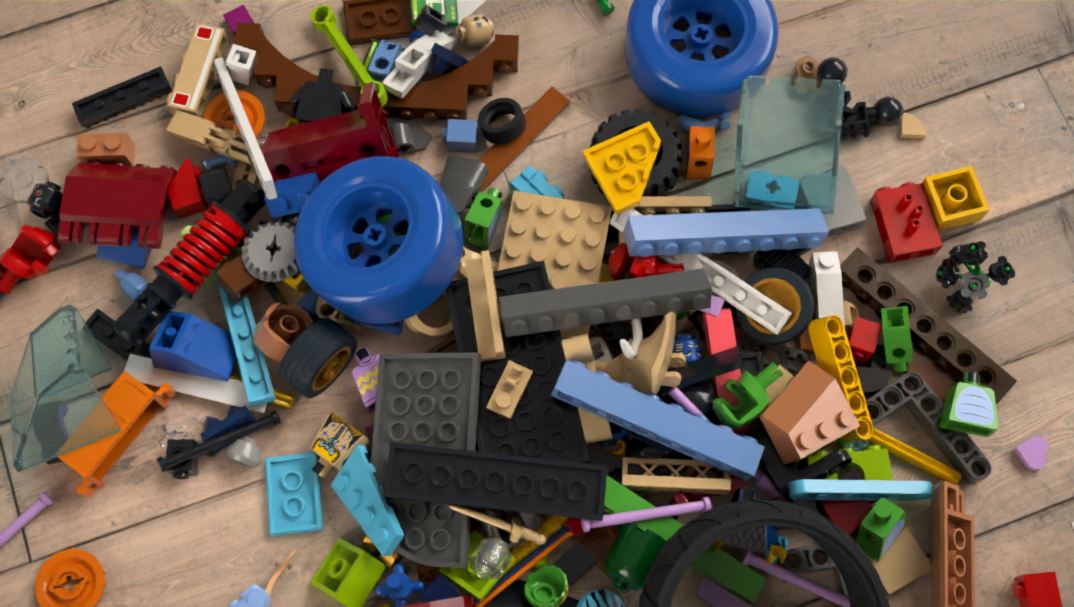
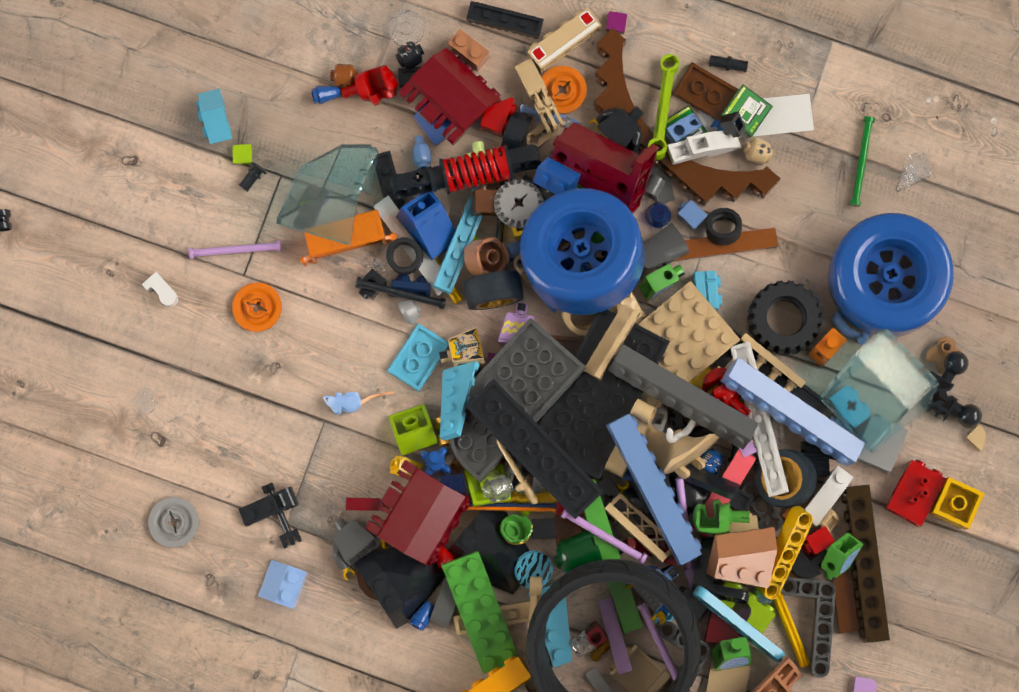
camera: 40 degrees right, 10 degrees up
(178, 389) = (390, 256): none -> black tyre
(241, 64) = (593, 58): white brick -> none
(245, 129) = (560, 111): white tile -> none
(429, 159) = (658, 218): none -> clear blue cone
(446, 60) = (723, 160): dark blue tile -> none
(509, 390) = (586, 401): tan plate -> none
(624, 165) = (768, 321): yellow plate -> none
(970, 408) = (845, 631): torso -> none
(975, 280) = (919, 562): black plant -> none

